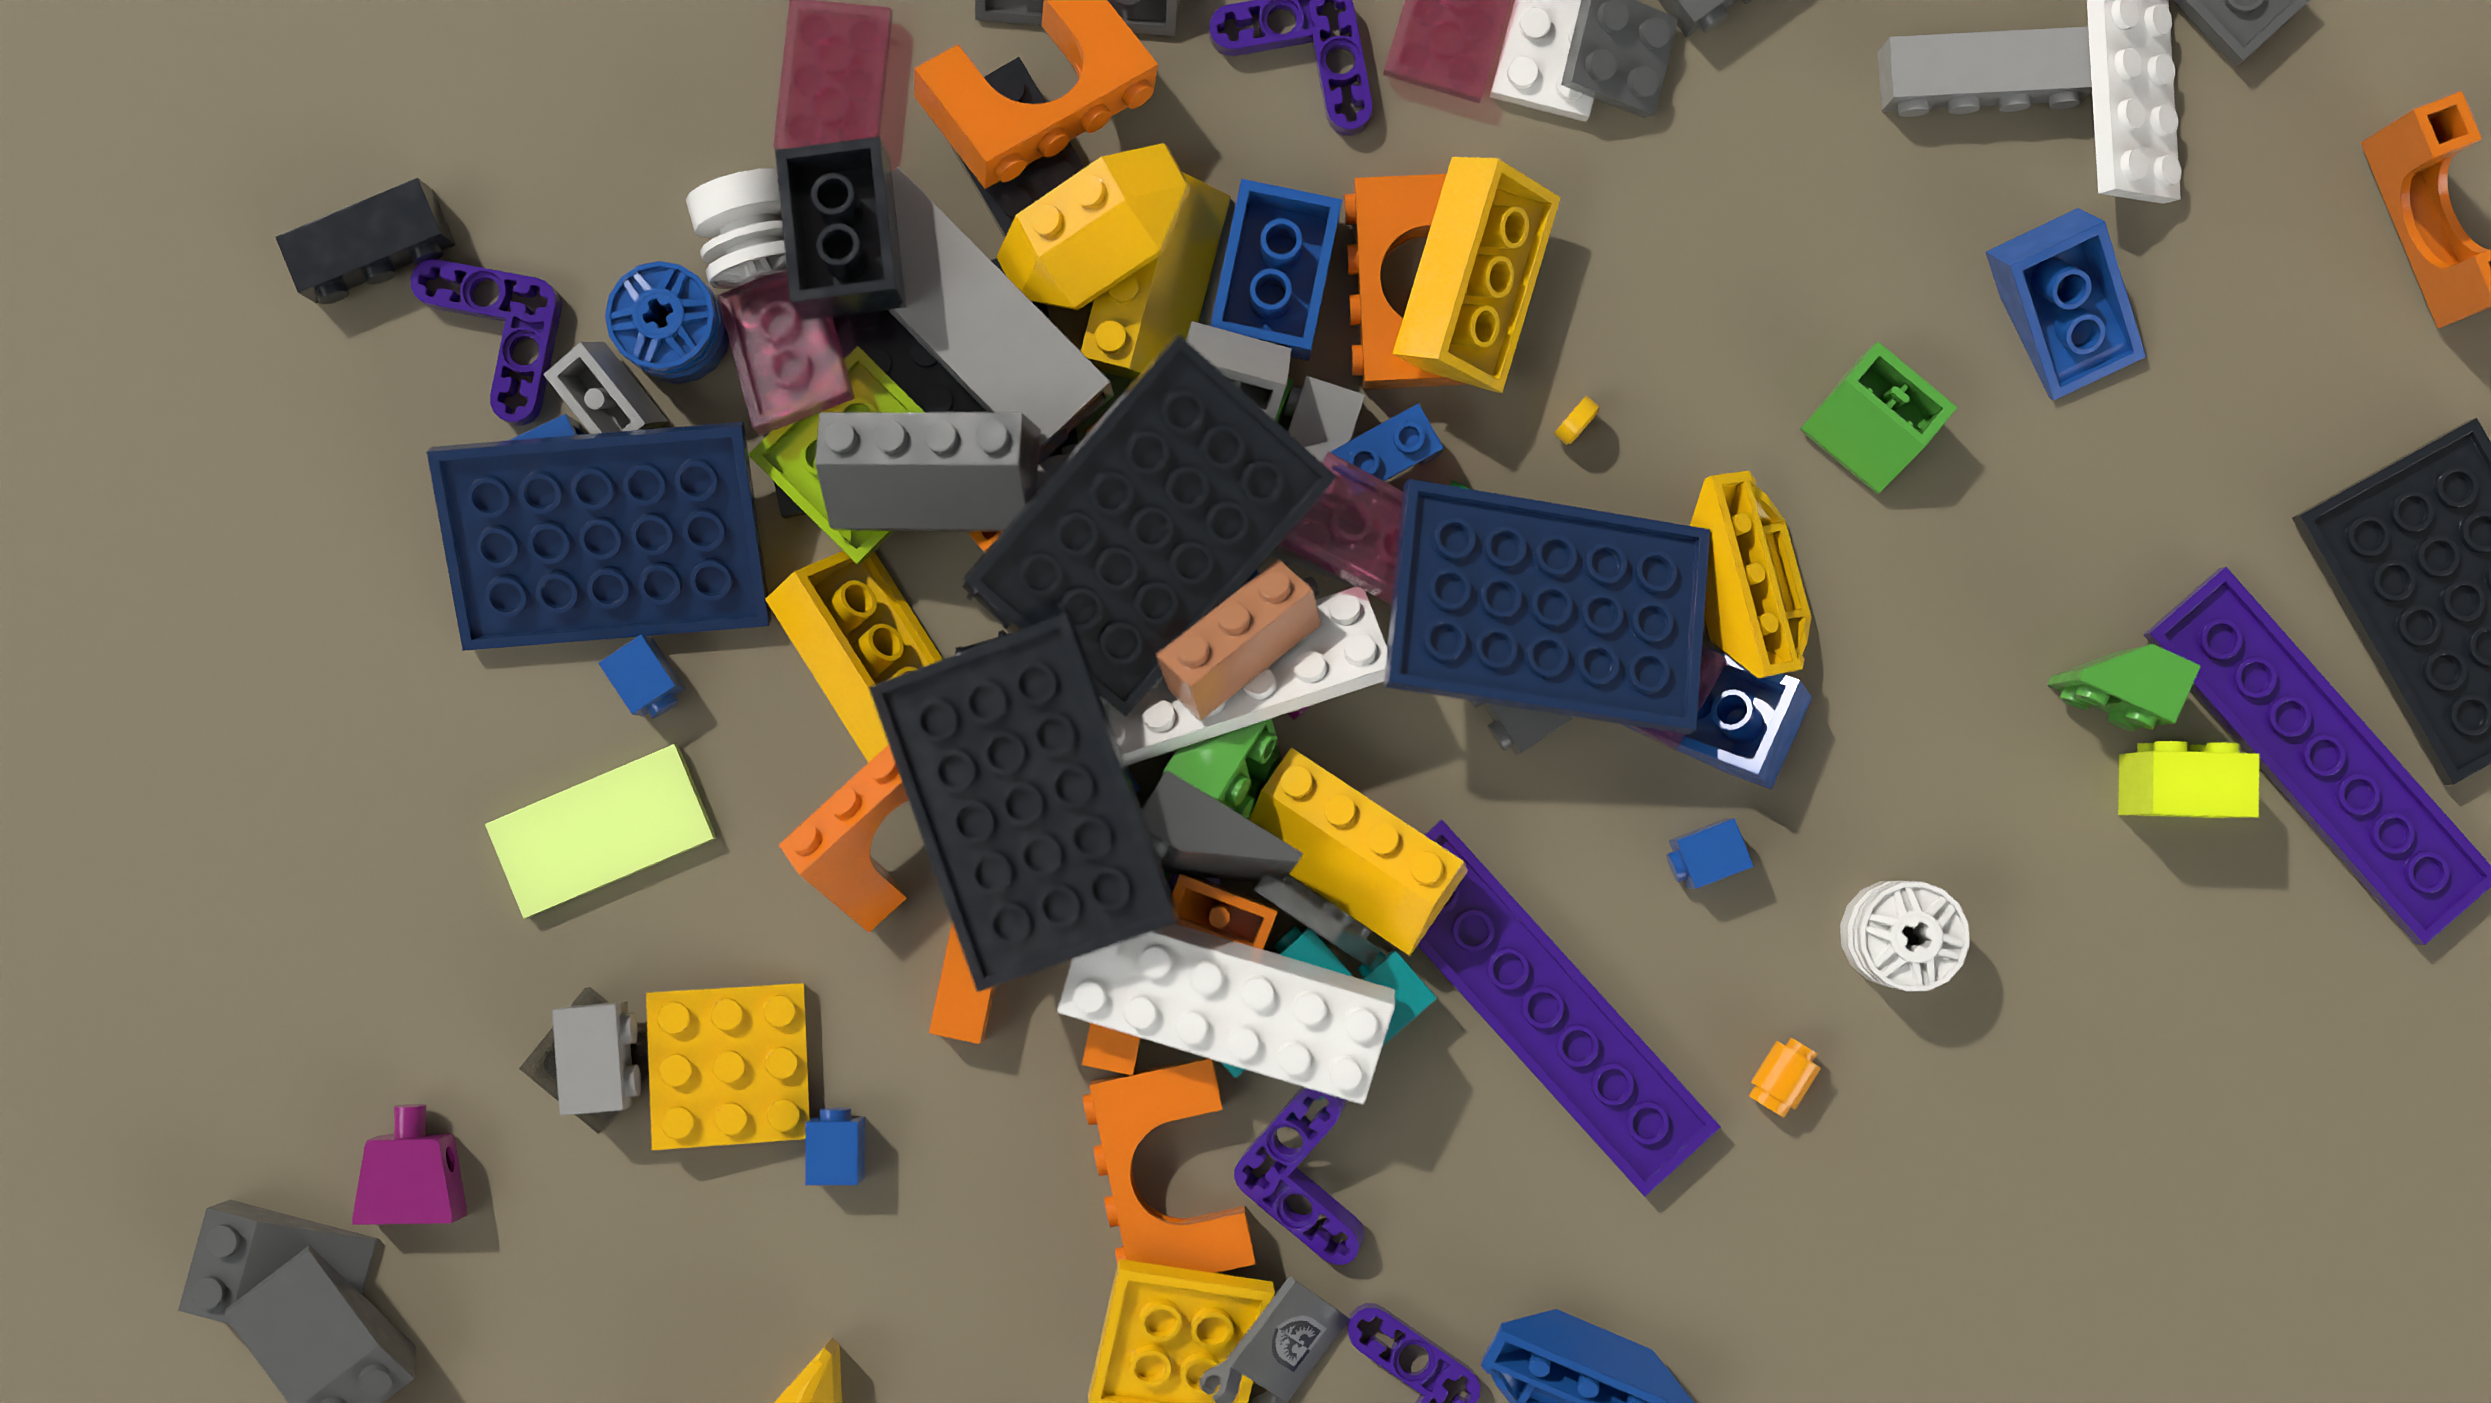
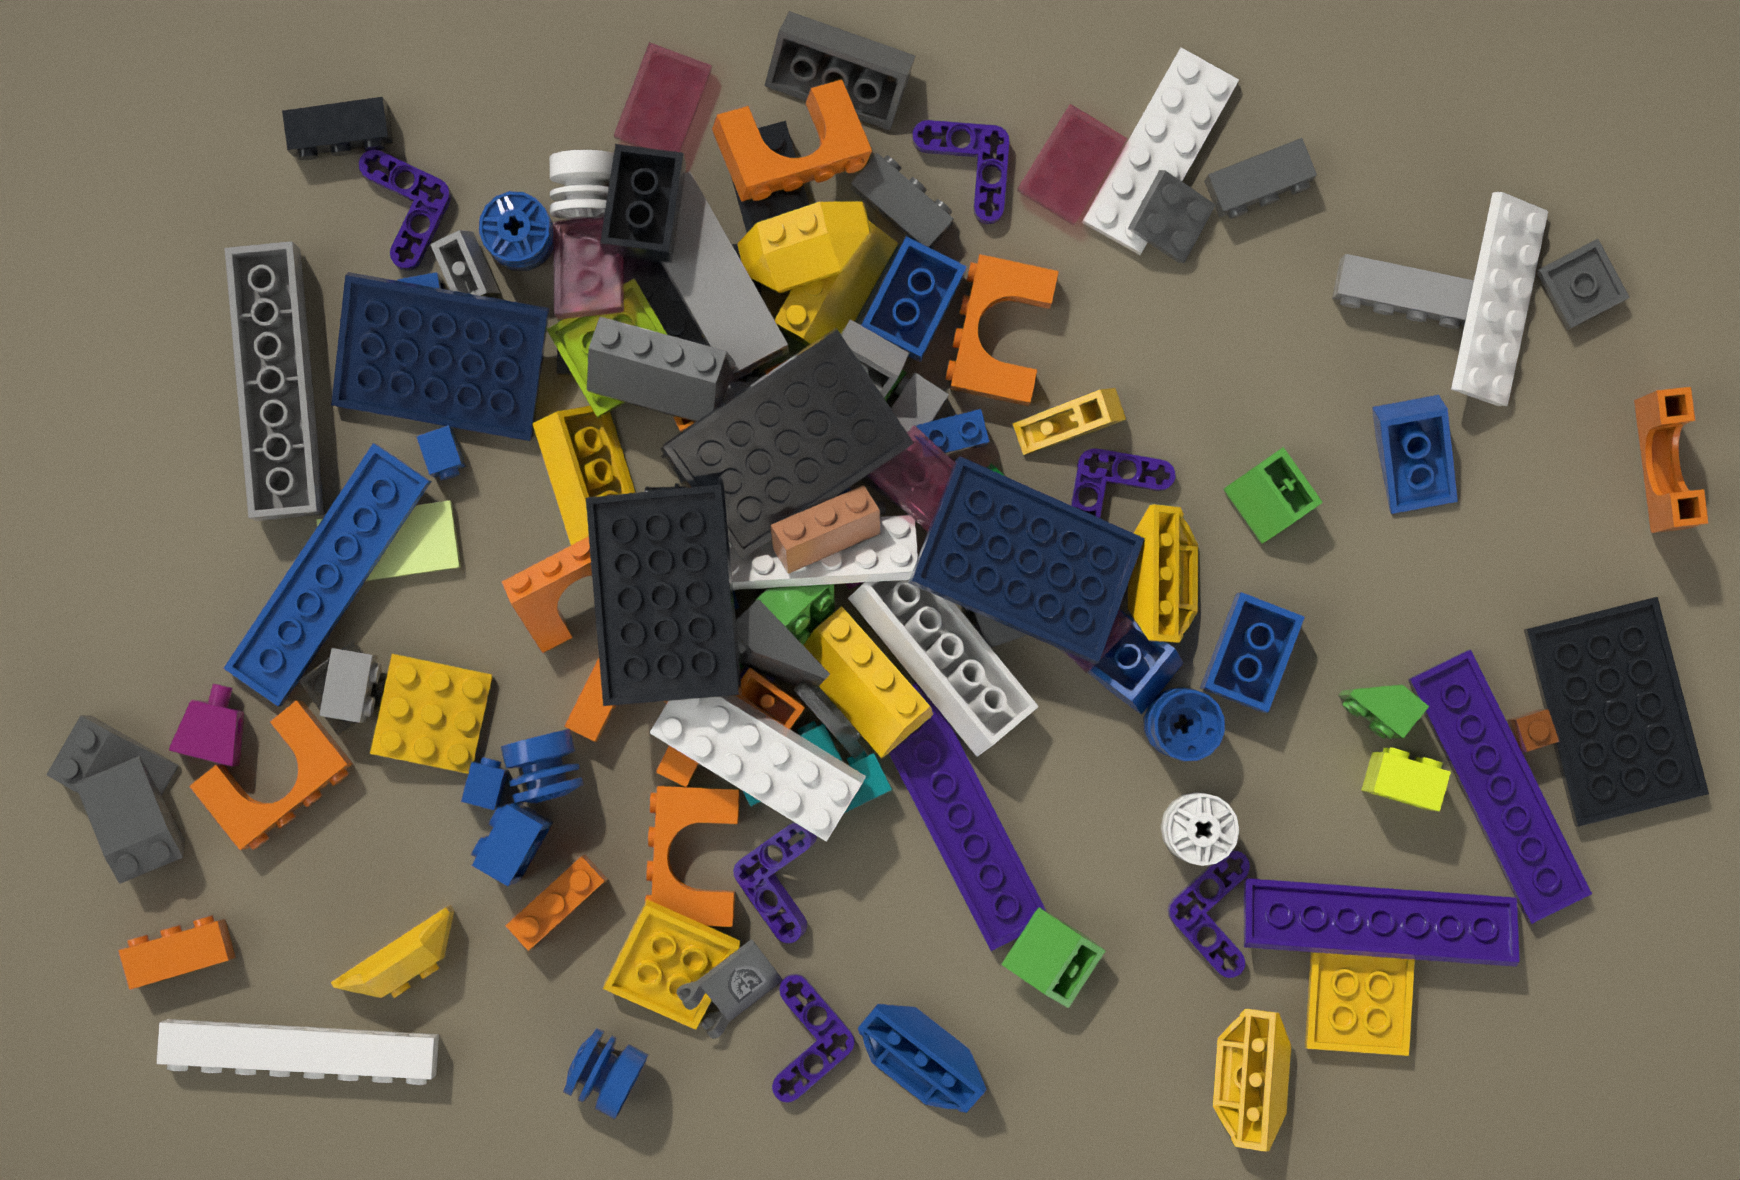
camera: 10 degrees right, 0 degrees up
(367, 637) = (274, 381): none -> light grey brick
(498, 1292) = (318, 761): none -> orange arch
(520, 901) = (327, 574): none -> blue plate
(895, 1230) = (511, 843): none -> blue brick
(912, 1102) = (542, 766): none -> blue wheel
(986, 1296) = (556, 902): none -> orange brick
(1220, 131) = (902, 201): none -> dark grey brick
(1467, 786) = (946, 660): none -> white brick
(1477, 273) = (1039, 336): yellow slope -> none
(1550, 387) = (1069, 420): none -> yellow slope
(1577, 421) = (1080, 446): yellow tile -> none
(1615, 462) = (1098, 480): none -> dark purple beam
(1708, 854) = (1090, 745): blue brick -> none
(1741, 1182) = (1053, 957): none -> bright green slope
(1784, 1076) = (1100, 899): light orange brick -> none
(1867, 793) = (1200, 734): none -> blue wheel
(1910, 655) = (1252, 652): none -> blue brick
(1936, 1066) = (1200, 919): none -> dark purple beam
(2080, 1284) = (1252, 1078): none -> yellow wedge
(2203, 1124) = (1359, 1003): none -> yellow plate
(2205, 1002) = (1381, 922): none -> dark purple plate
(2352, 659) = (1533, 730): none -> dark orange brick

